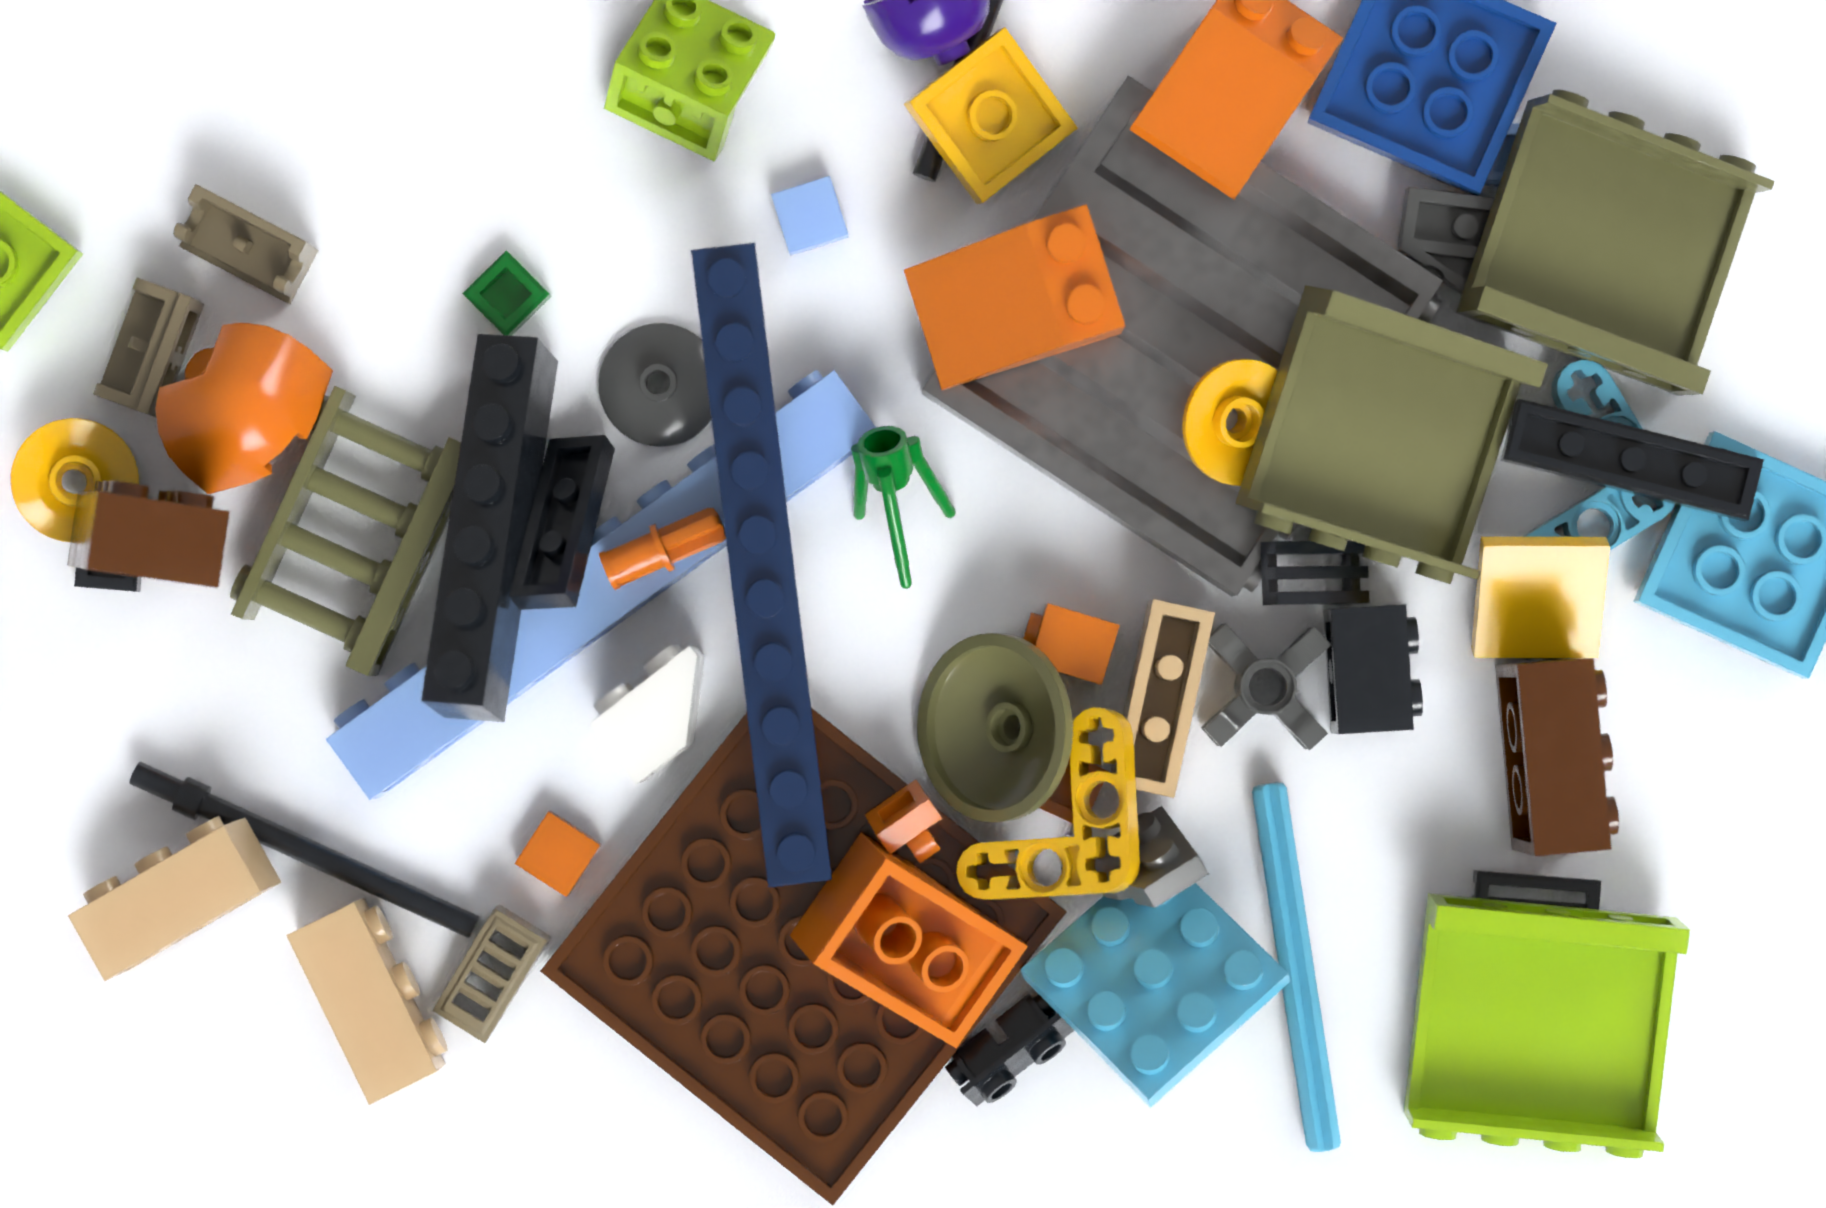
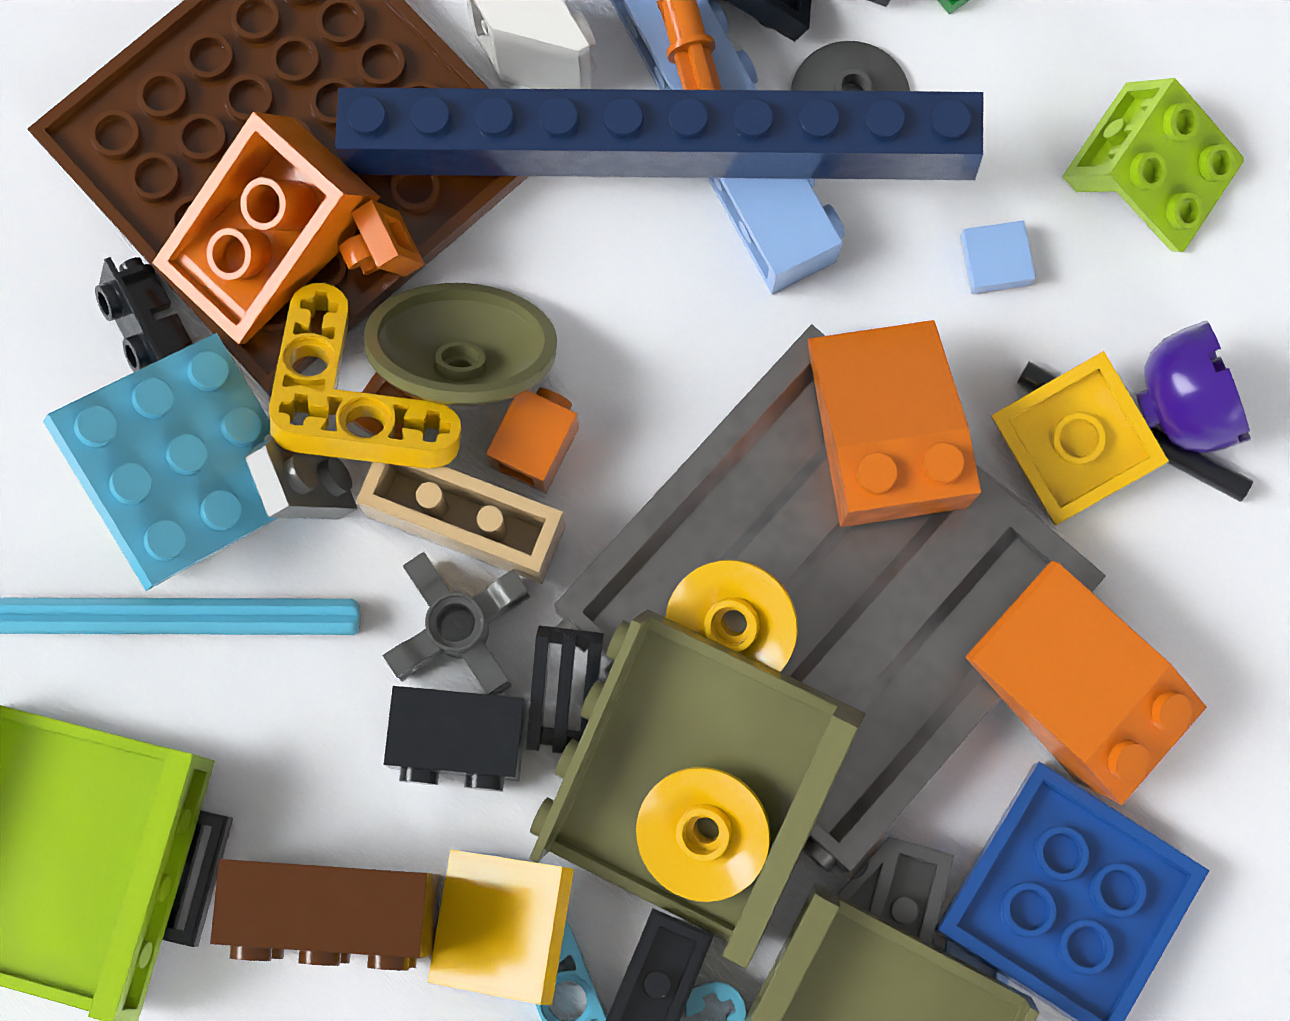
camera: 95 degrees right, 10 degrees down
(886, 461) = (736, 274): green plant -> none
(1458, 425) = (686, 859): none -> yellow dish

